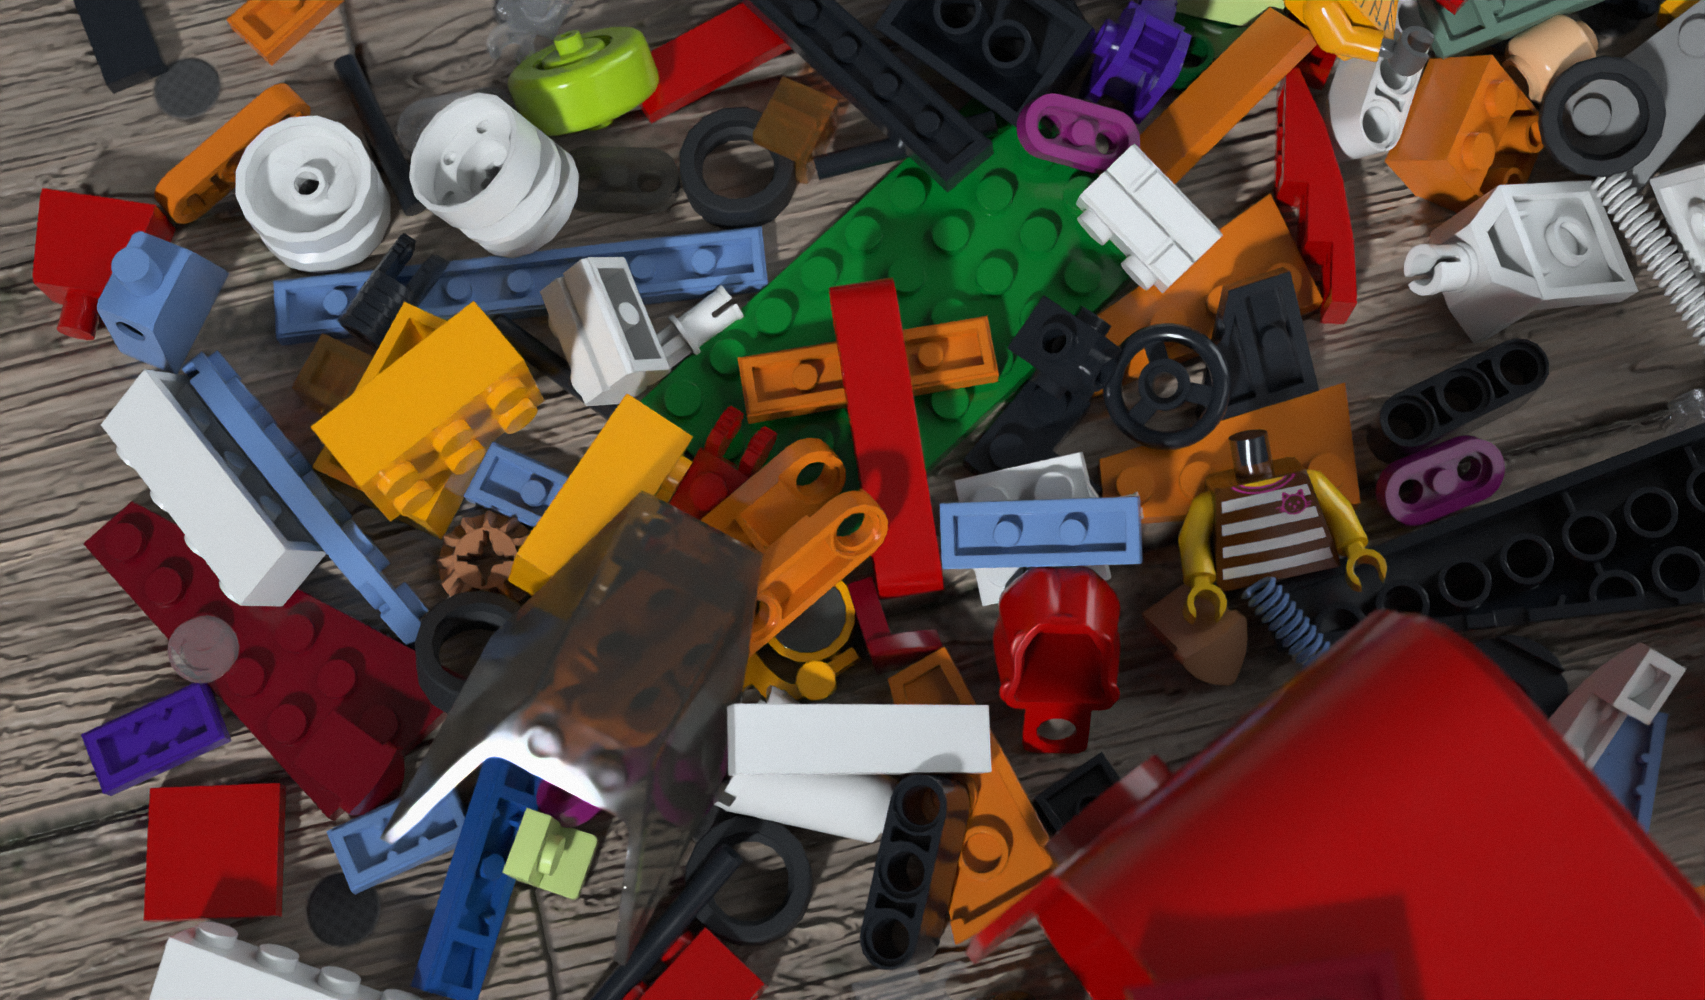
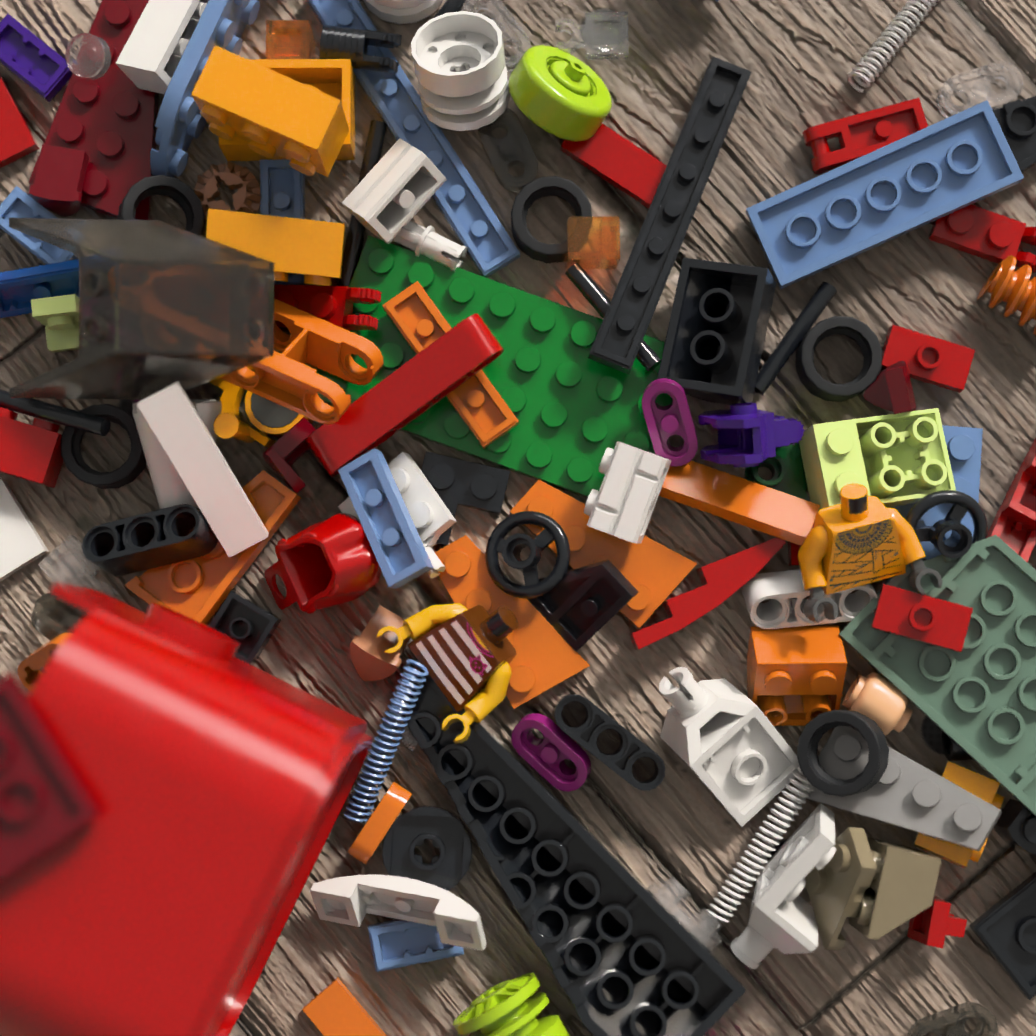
camera: 55 degrees right, 10 degrees up
(1067, 350) = (517, 480): black brick -> none

